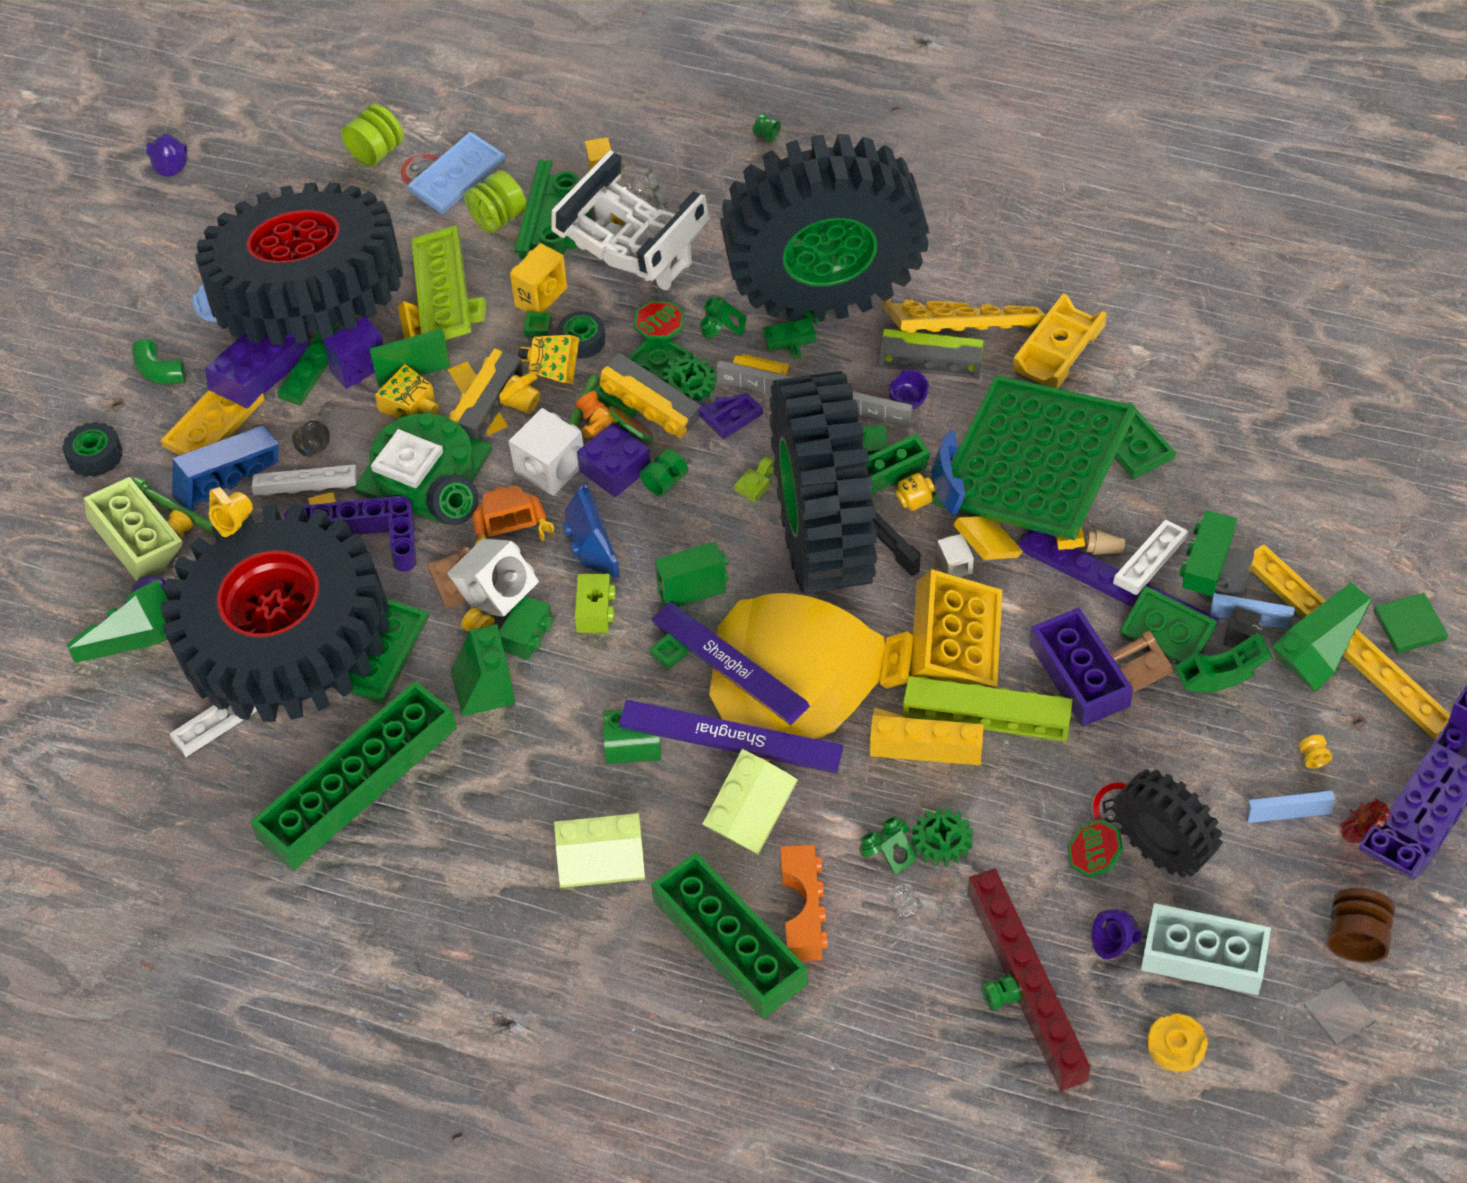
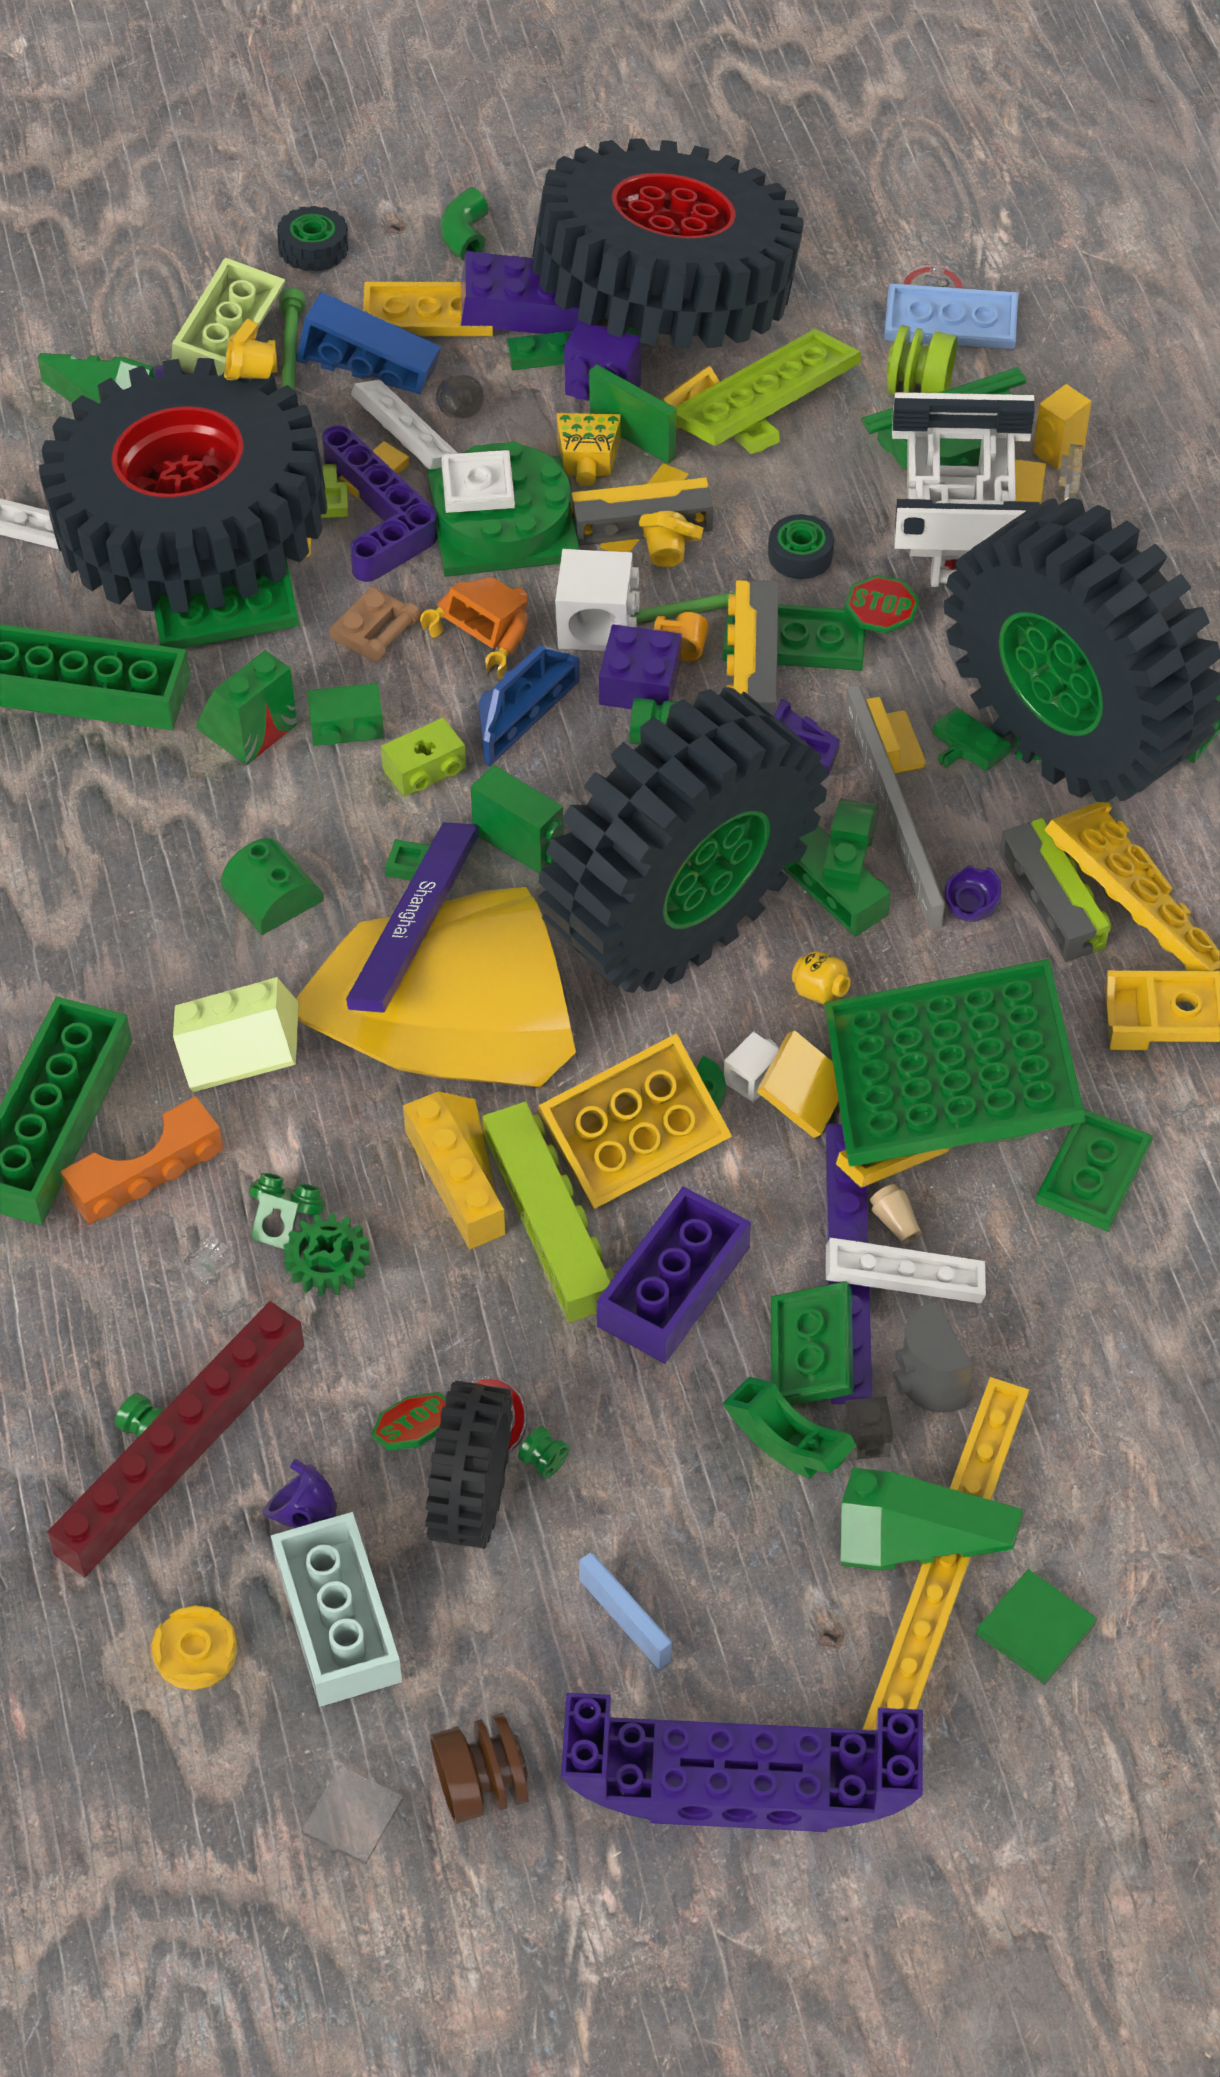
camera: 55 degrees right, 0 degrees up
(167, 155) = (754, 68): dark purple helmet -> none
(372, 135) = (927, 211): lime wheel -> none
(438, 499) = (478, 548): wheel -> none
(474, 576) = (352, 664): white brick -> none
(476, 619) = (320, 669): yellow wheel -> none
(537, 324) = (785, 501): green plate -> none
(538, 279) = (839, 463): yellow brick -> none
(552, 357) = (737, 537): yellow torso -> none
(589, 404) = (702, 603): orange wheel -> none
(599, 850) = (91, 937): yellowish green slope -> none
(634, 426) = (699, 655): green piece -> none
(690, 377) = (815, 676): green gear -> none
(717, 314) = (917, 654): green bracket -> none
(731, 736) = (307, 970): dark purple tile -> none
(896, 659) = (550, 1082): yellow plate -> none
(897, 462) = (833, 929): green brick -> none
(906, 555) = (719, 1012): black container -> none
(948, 488) = (895, 972): blue slope -> none
(1145, 668) = (726, 1348): medium nougat plate -> none
(1207, 552) = (917, 1309): green brick -> none
(1272, 614) = (908, 1426): light blue tile -> none
(1315, 751) = (733, 1601): yellow wheel -> none
(1362, 820) = (654, 1705): clear red wheel -> none

